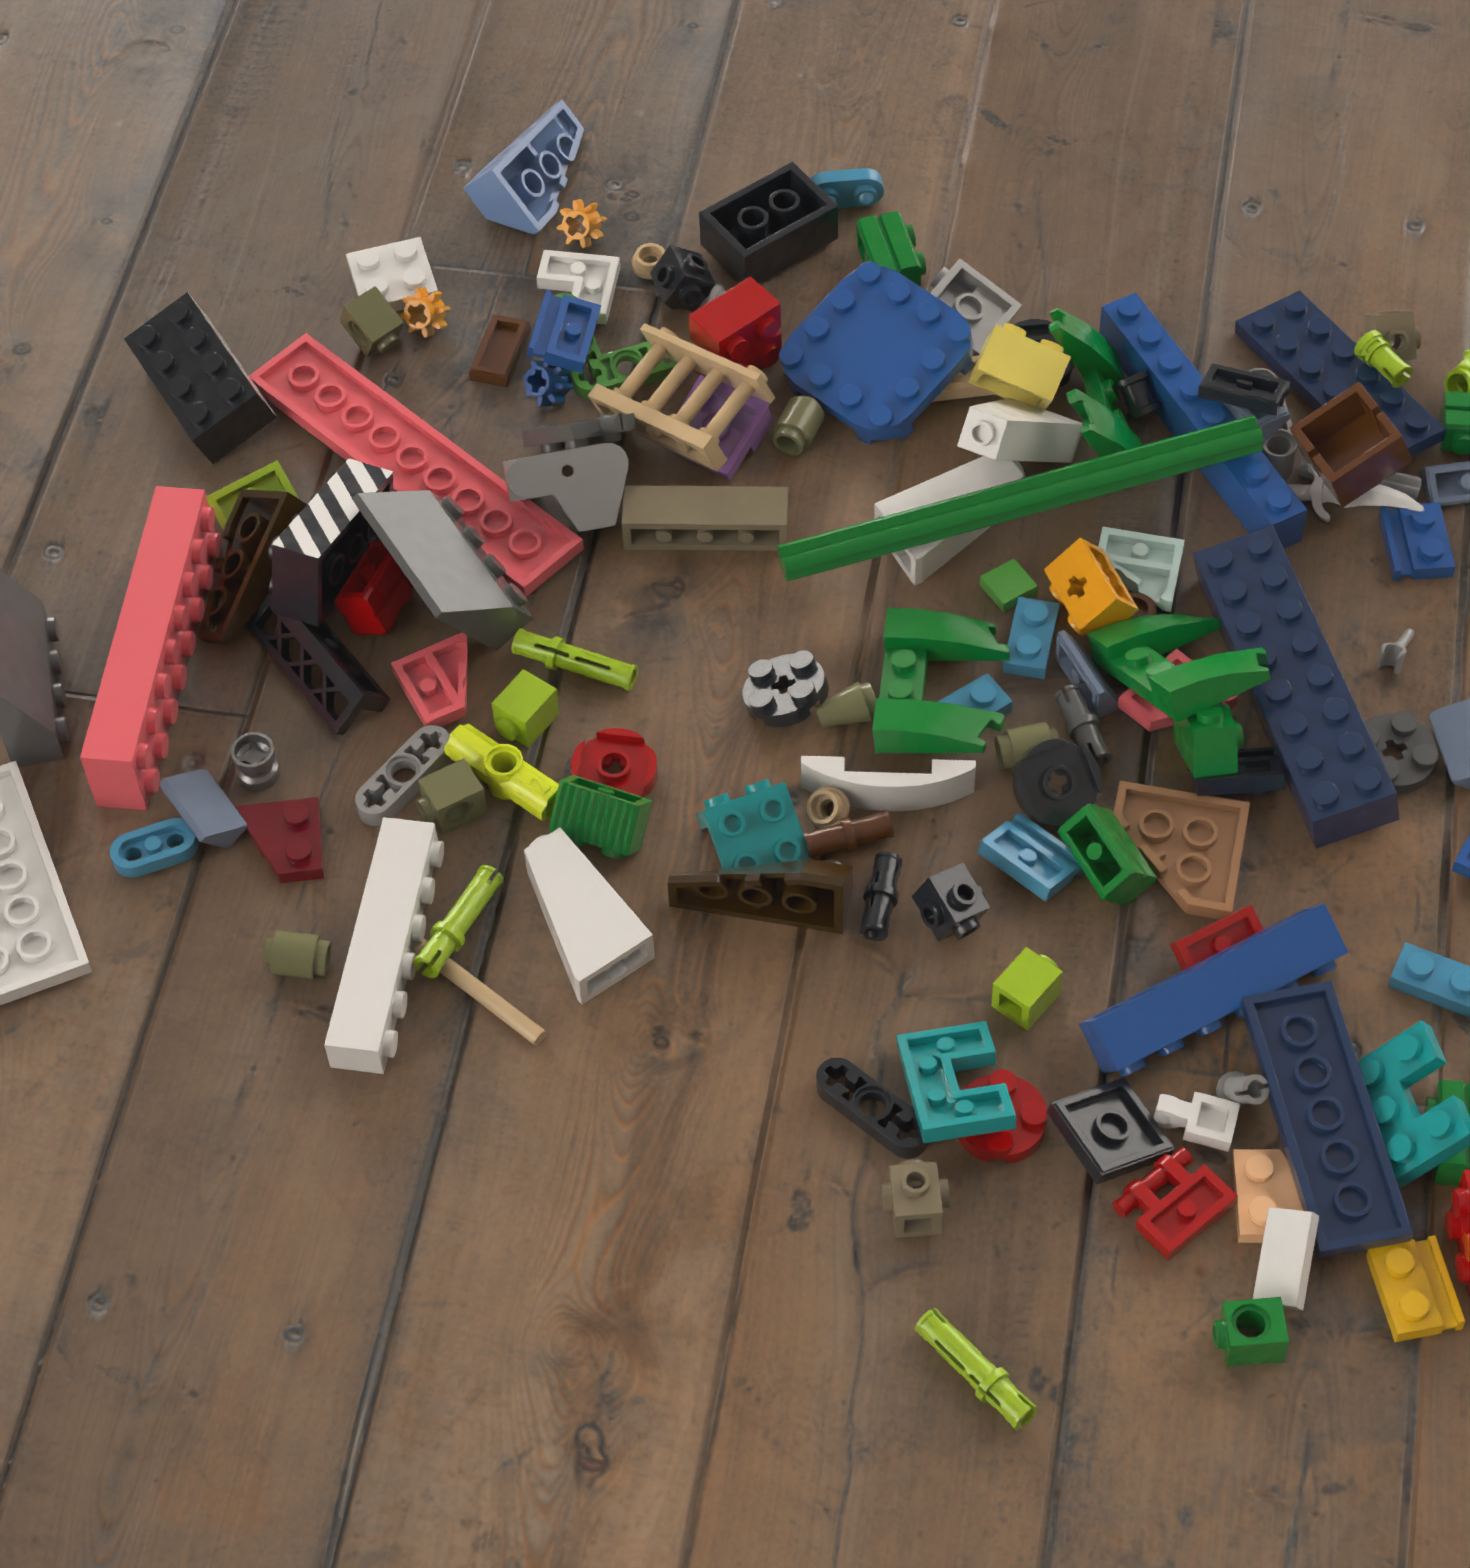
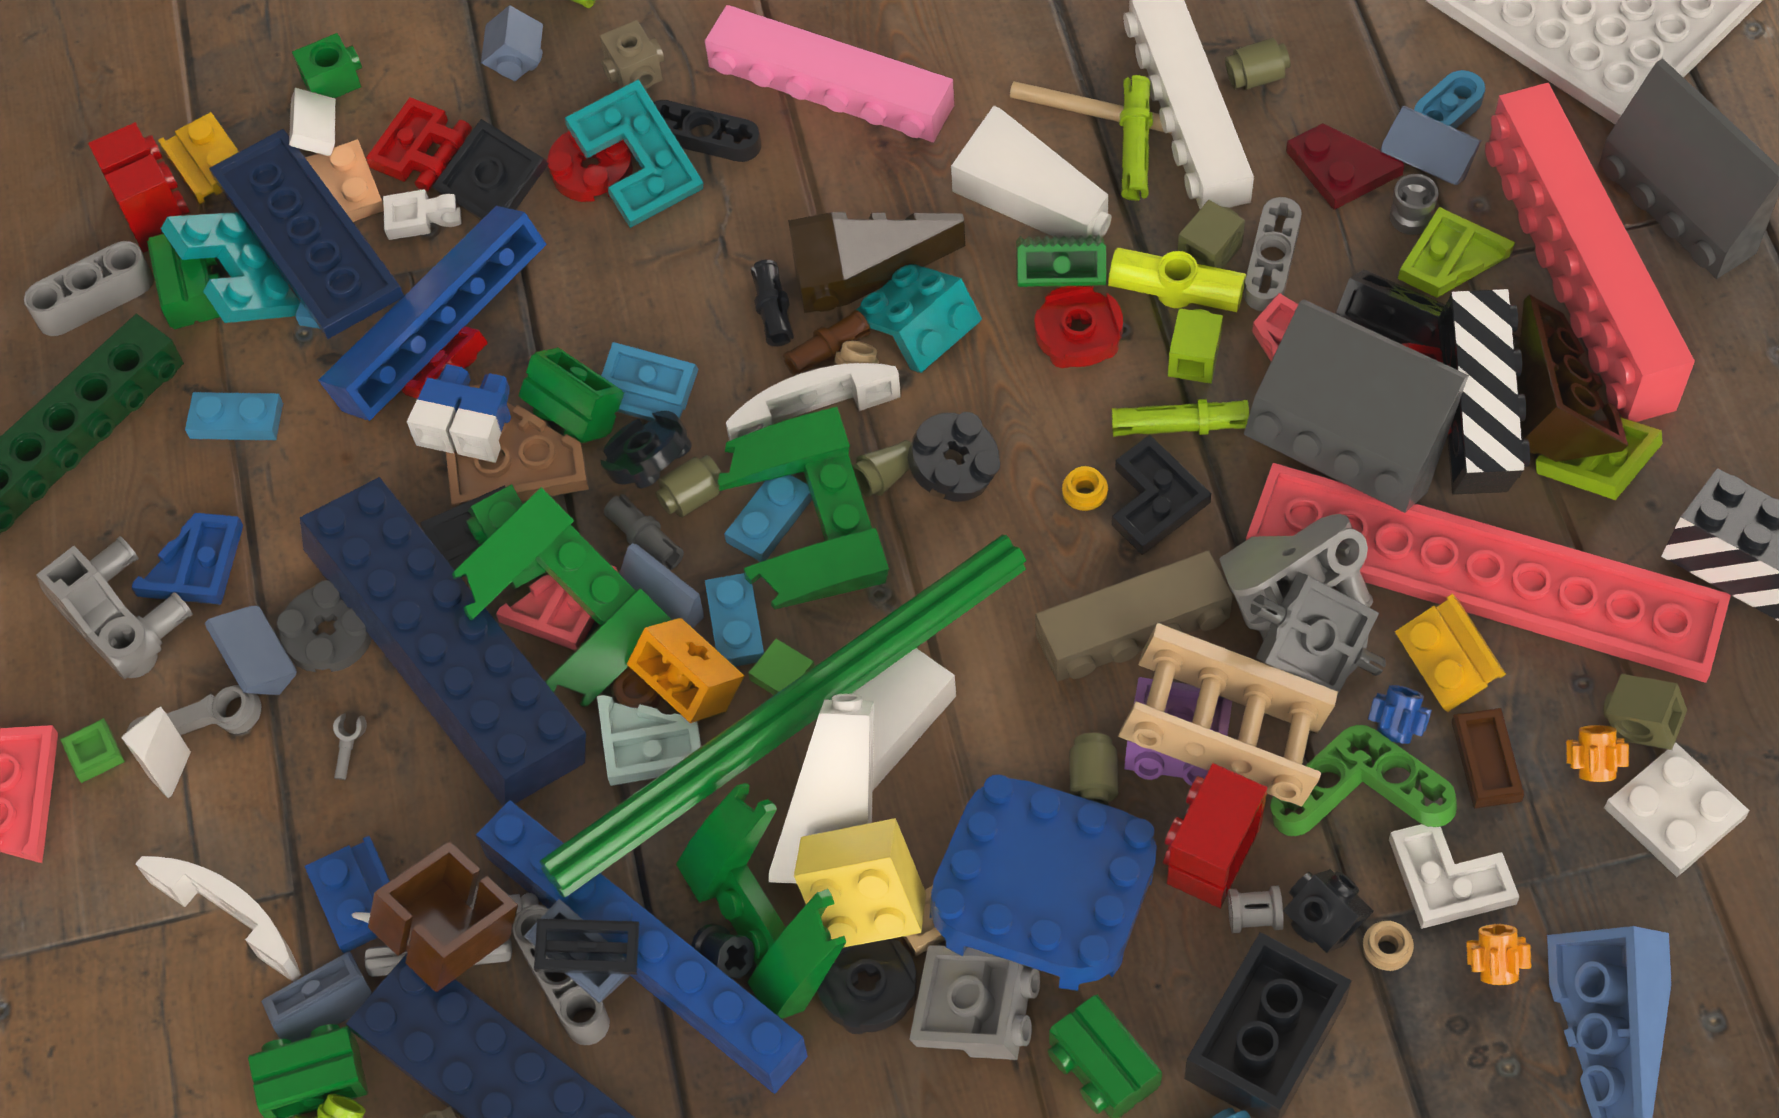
camera: 160 degrees right, 5 degrees up
(256, 708) = (1452, 253): none -> lime wing
(481, 412) = (1450, 653): none -> yellow plate
(564, 331) = (1407, 743): blue plate -> none
(625, 598) = (1166, 495): none -> black plate
(687, 625) = (1084, 478): none -> yellow plate
(719, 1110) = (830, 73): none -> bright pink brick
(951, 903) = (699, 300): black brick -> none
(1027, 988) = (604, 261): lime brick -> none
(1038, 1269) = (512, 43): none -> sand blue brick
(1217, 856) = (461, 416): none -> hips
(1241, 1088) = (393, 247): light grey pin -> none
(1377, 353) = (448, 1087): lime pin -> none

